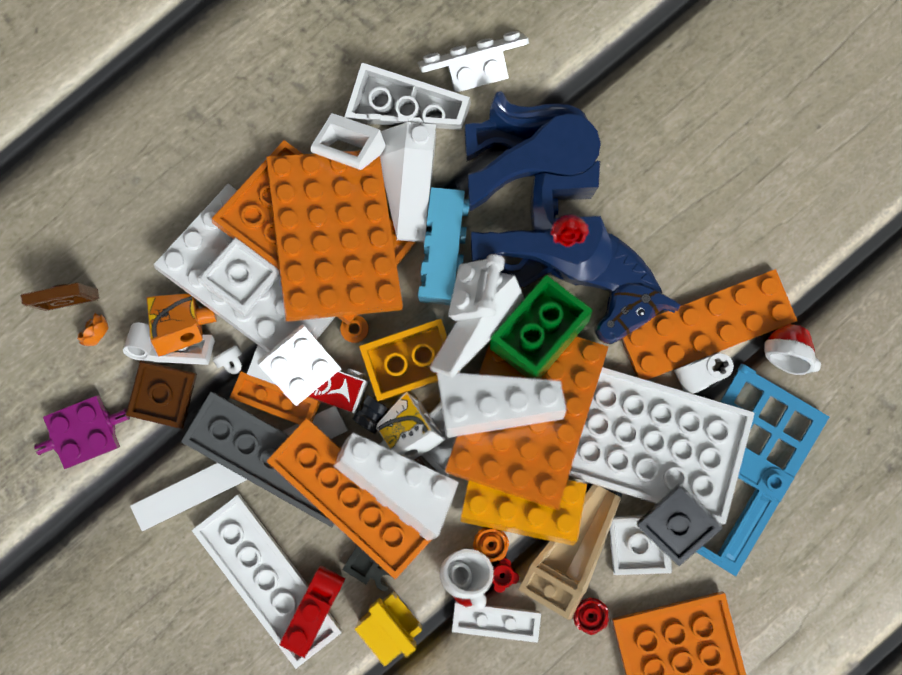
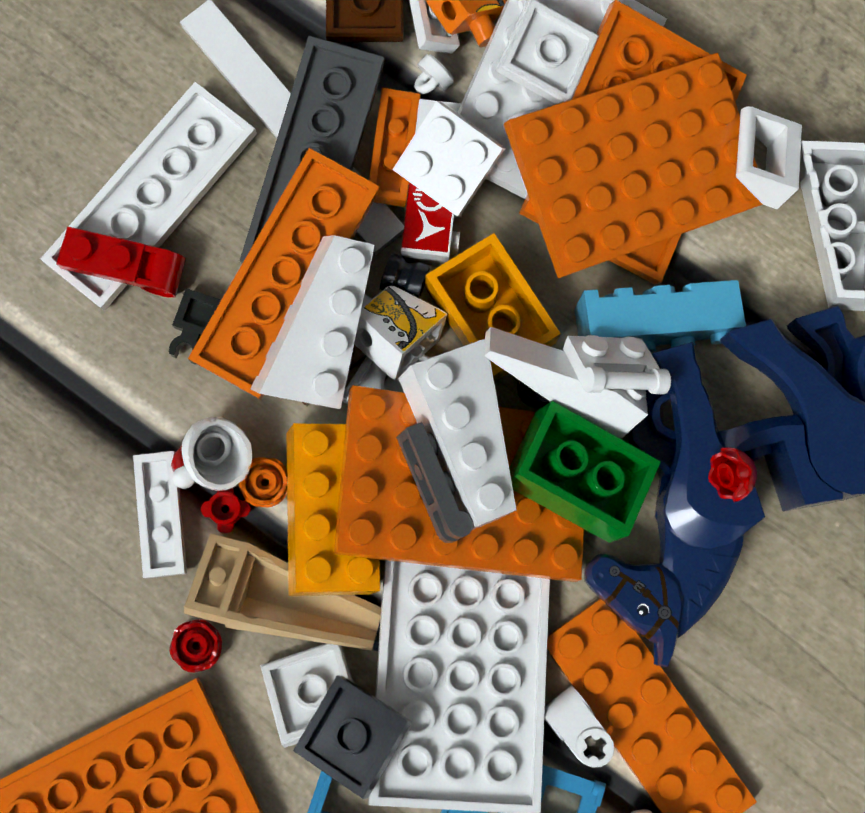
camera: 70 degrees right, 5 degrees down
(358, 337) = (510, 239): orange plate -> none
(389, 628) = (120, 367): yellow plate -> none
(408, 176) = (746, 247): white wedge -> none
(529, 431) = (434, 484): none -> dark grey plate

